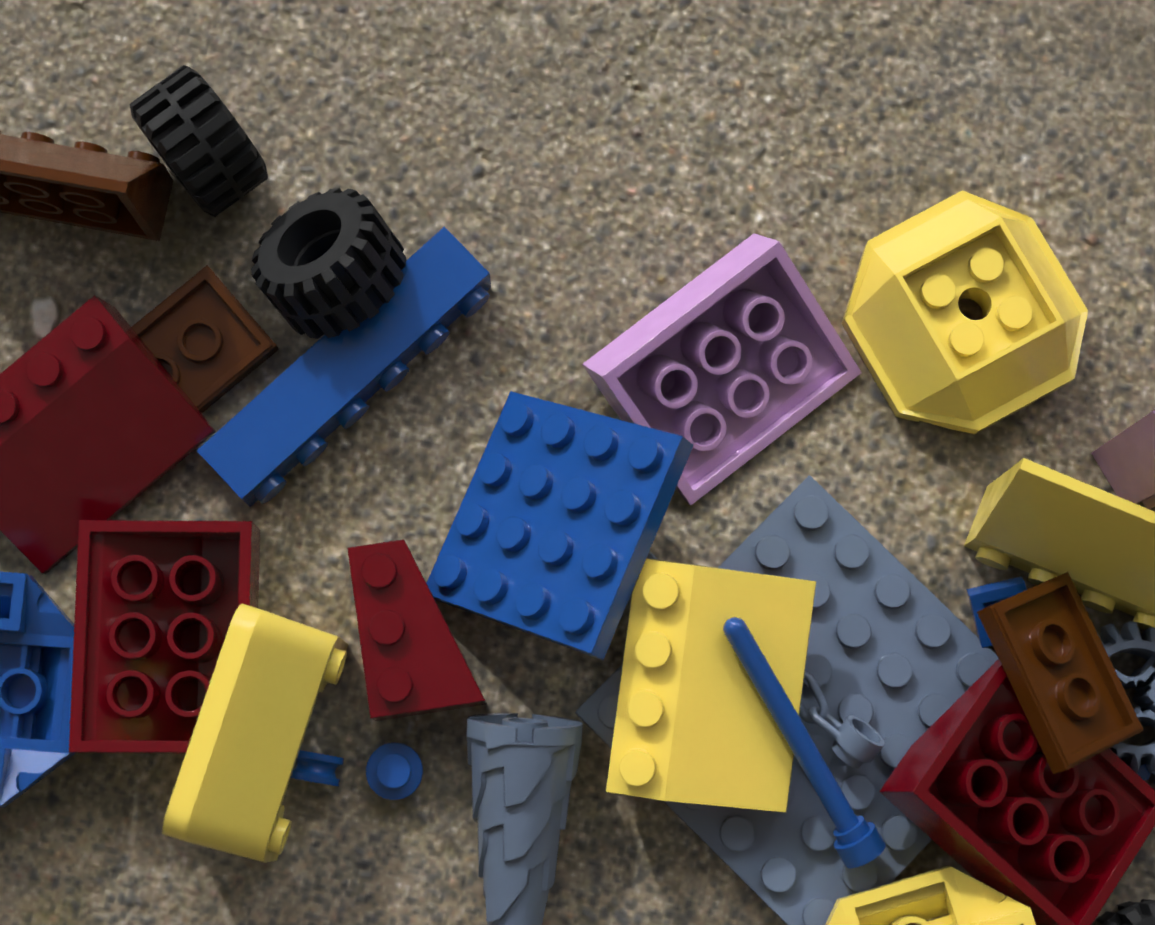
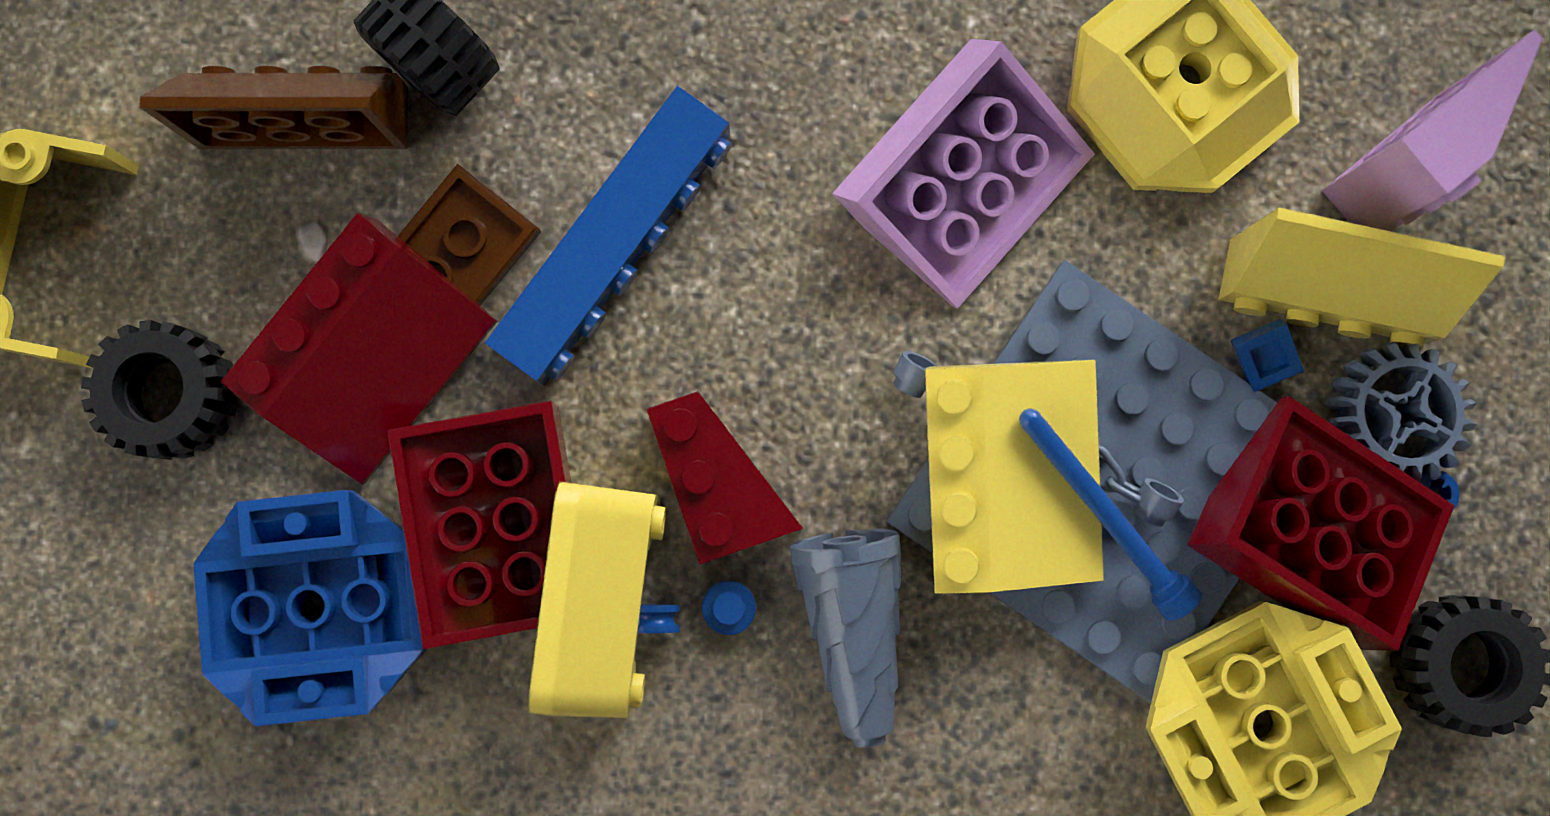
camera: 10 degrees left, 5 degrees up
(329, 263) = (575, 140): black tyre -> none
(559, 522) = (842, 347): blue plate -> none
(1060, 672) = (1339, 403): reddish brown tile -> none

